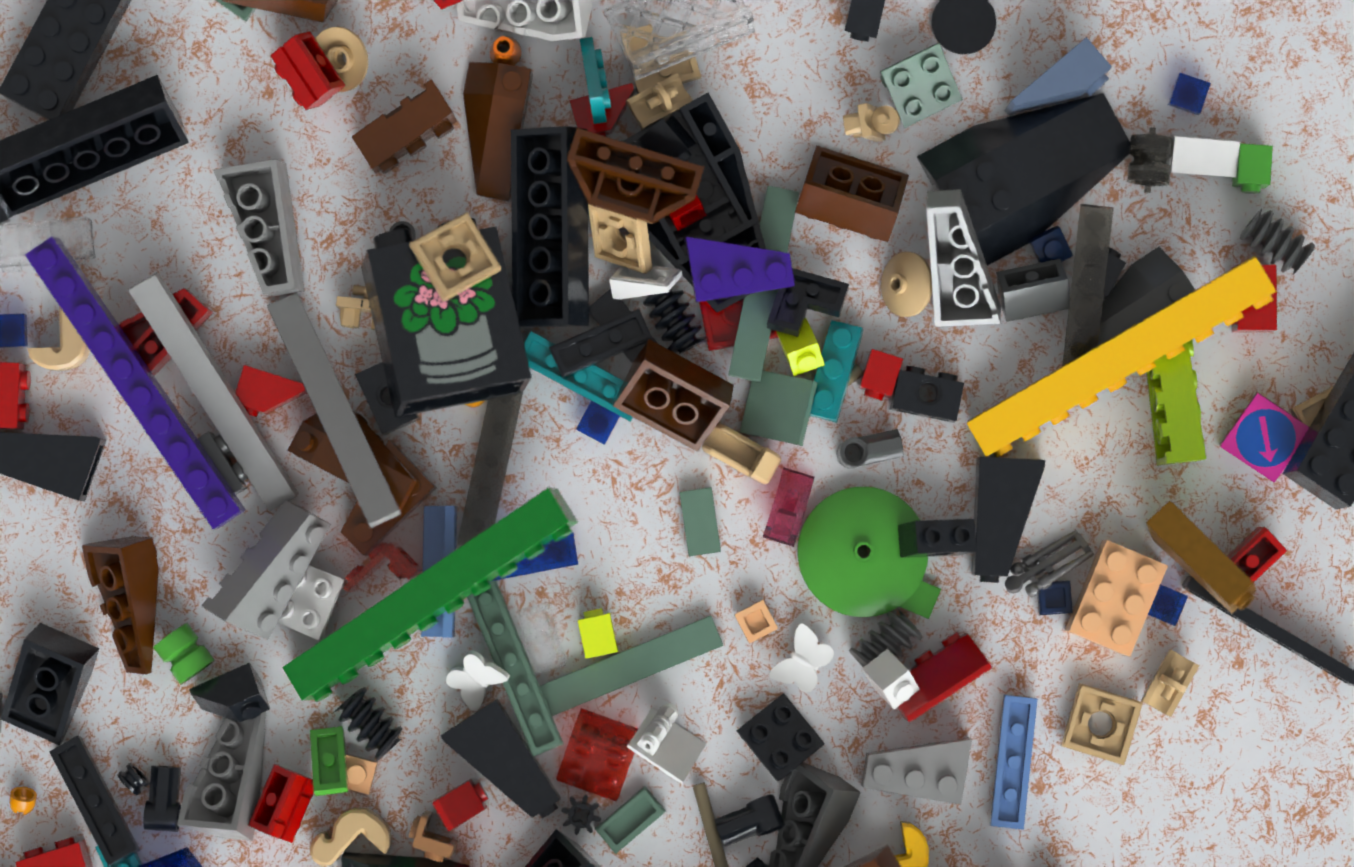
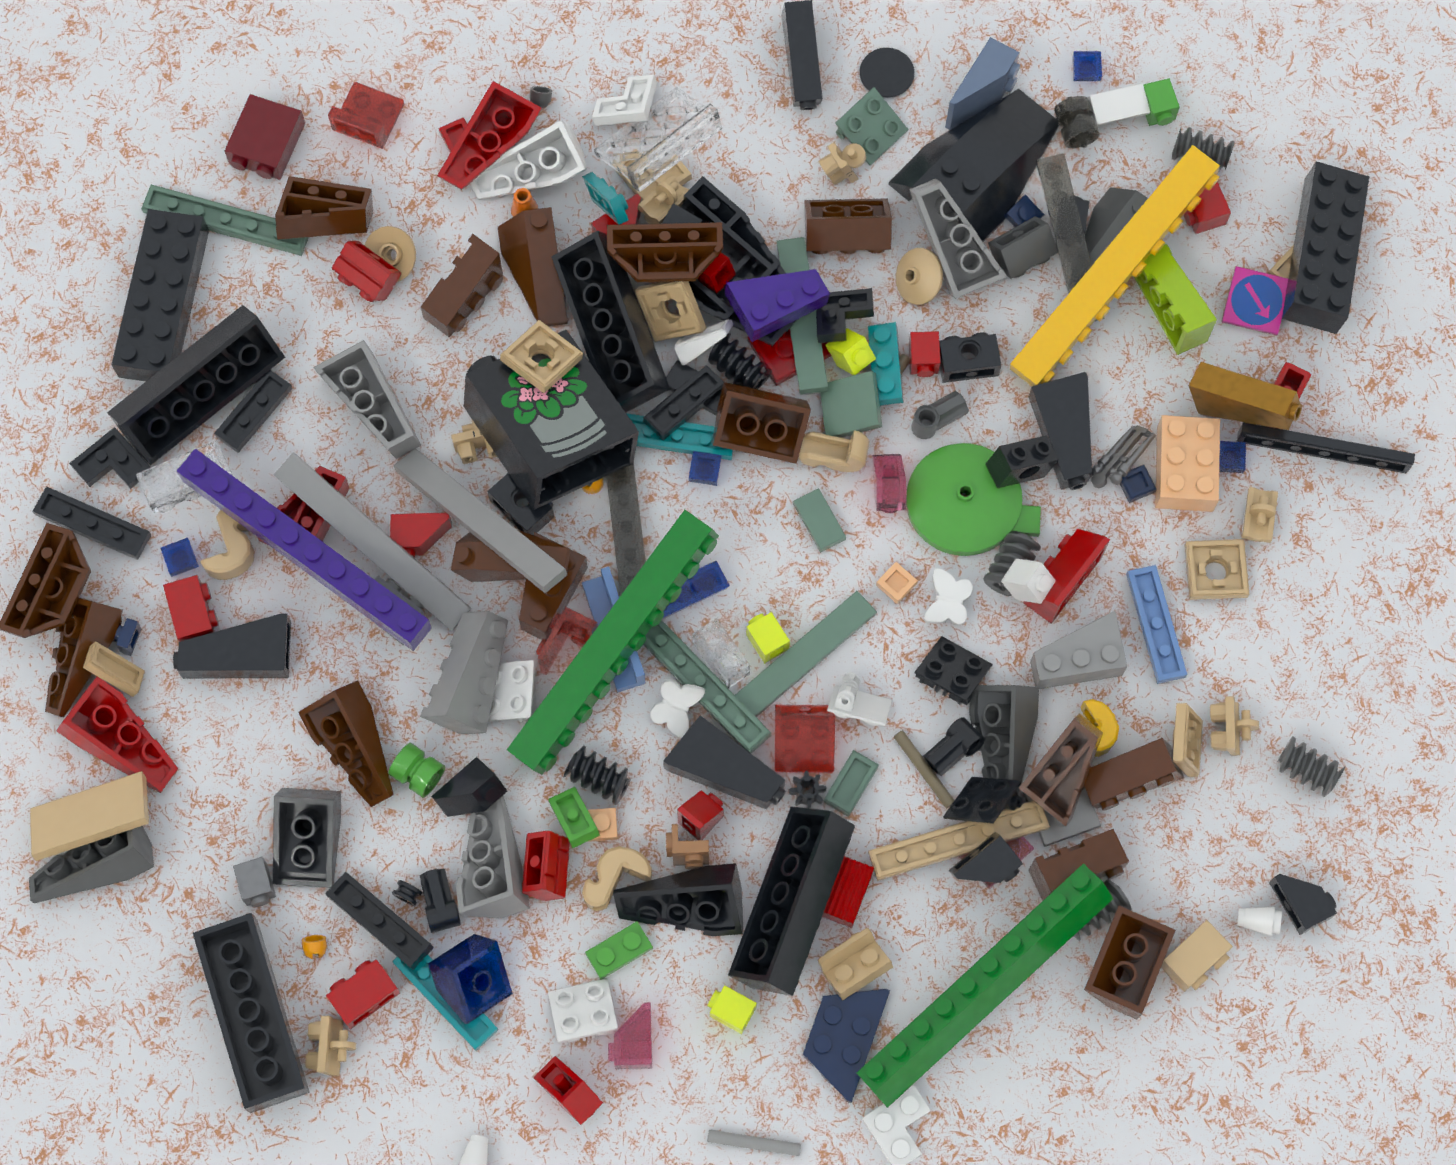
camera: 20 degrees left, 15 degrees down
(136, 190) = (253, 411): none -> black plate

